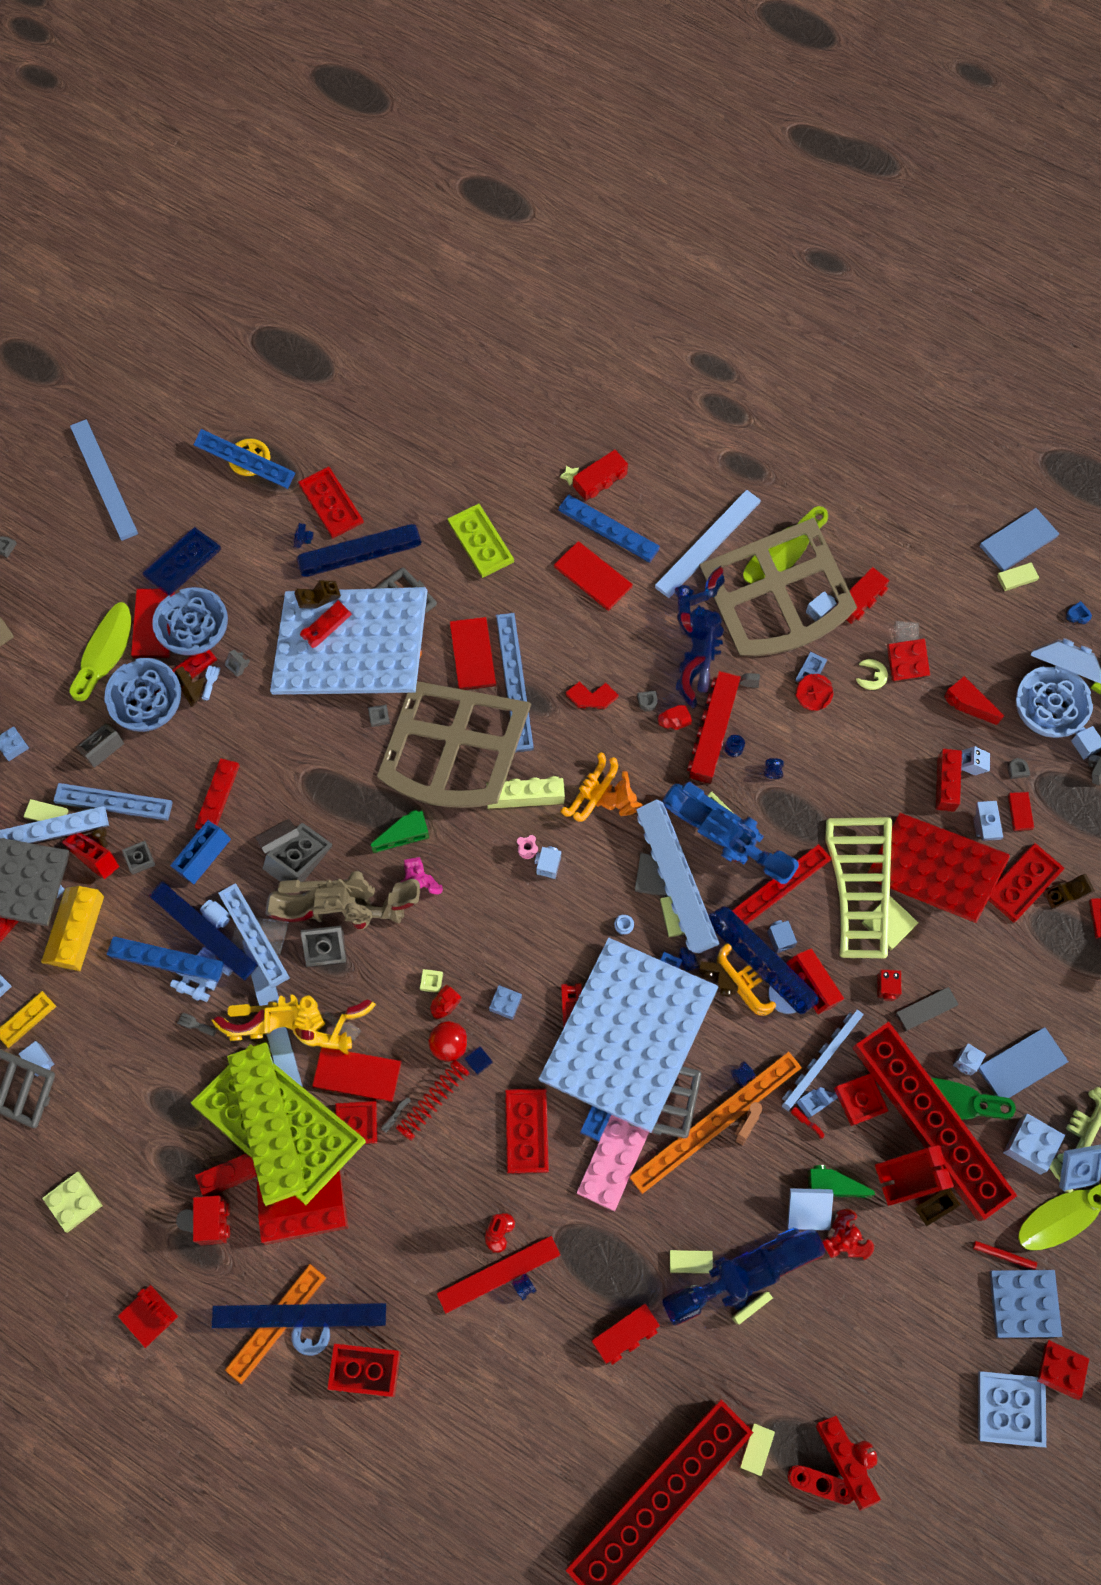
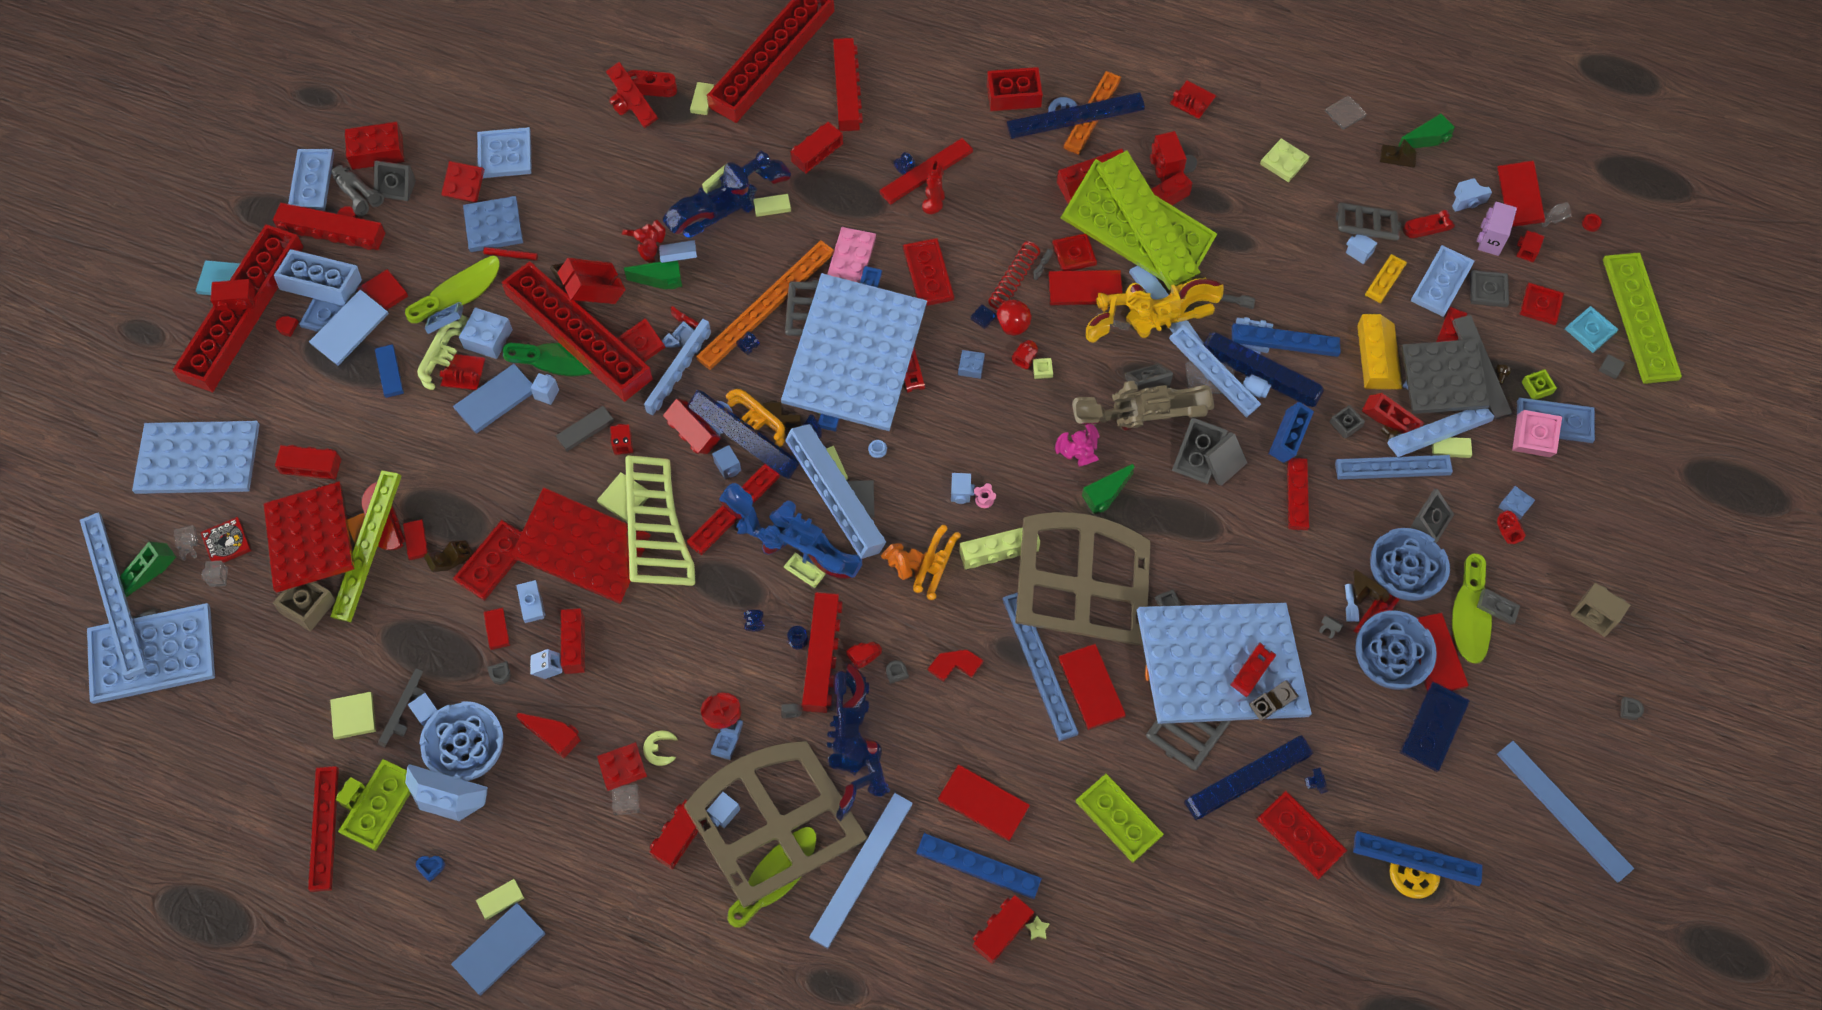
camera: 170 degrees right, 5 degrees down
(29, 720) = (1510, 527): none -> red rock
(77, 648) = (1498, 606): none -> dark grey plate
(572, 1430) = (846, 84): none -> red brick
(746, 1127) = (738, 298): nougat plate -> none
(1057, 1103) = (463, 372): none -> red hinge

